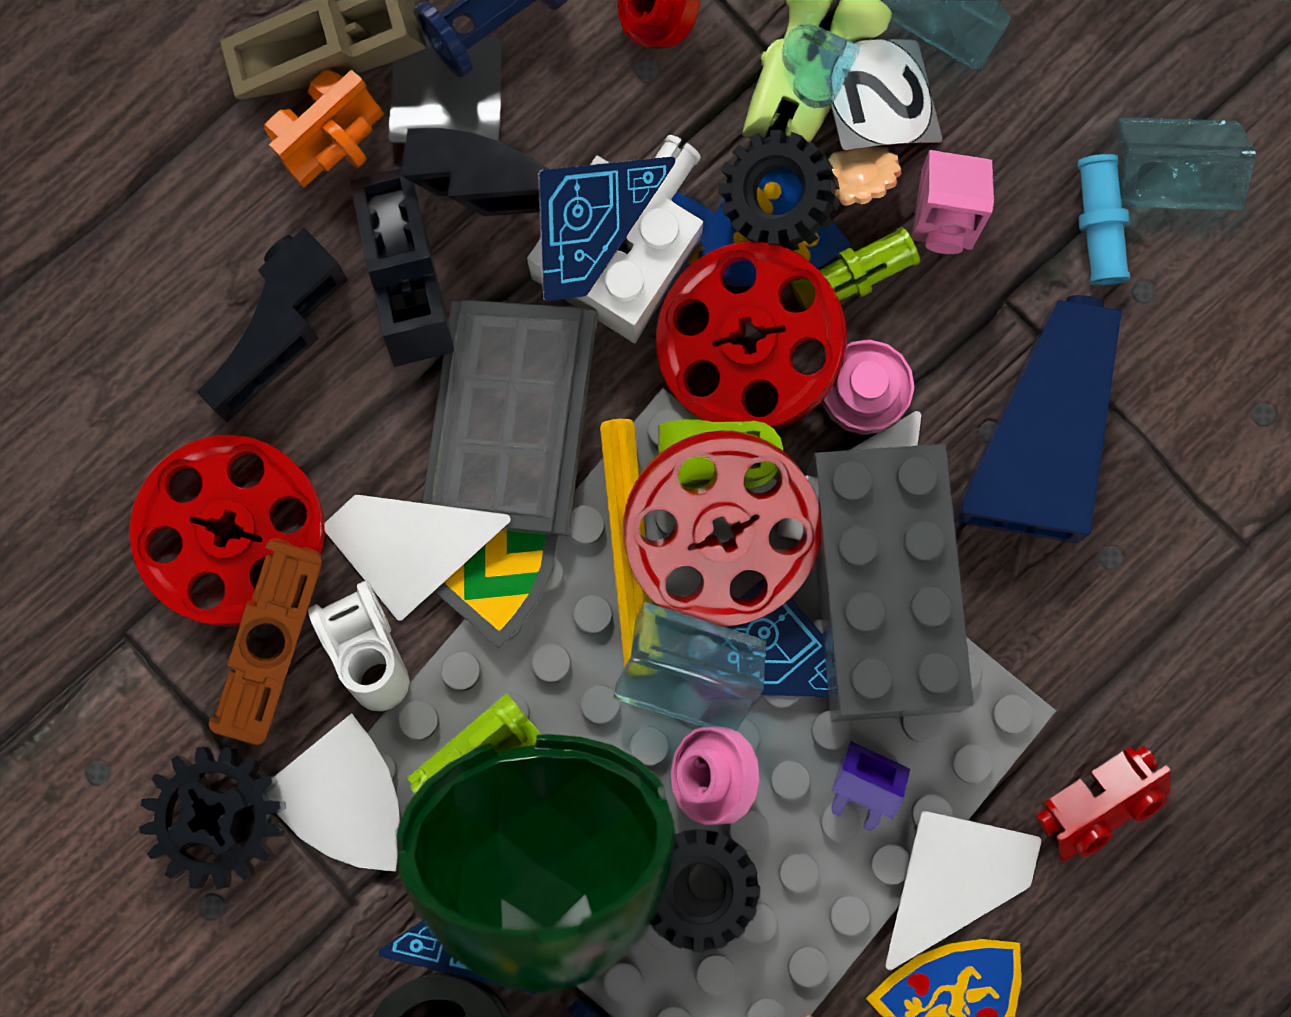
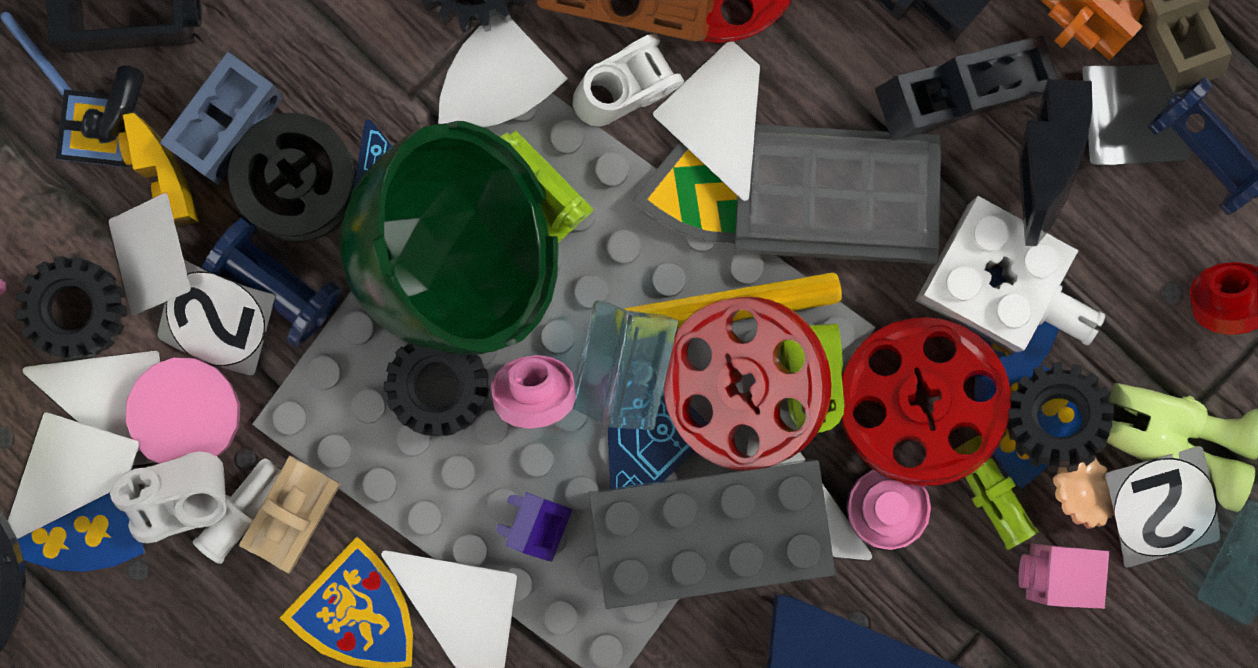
camera: 85 degrees right, 5 degrees up
(588, 217) = (1016, 245): dark blue sticker -> none
(818, 62) = (1184, 446): clear light blue tile -> none

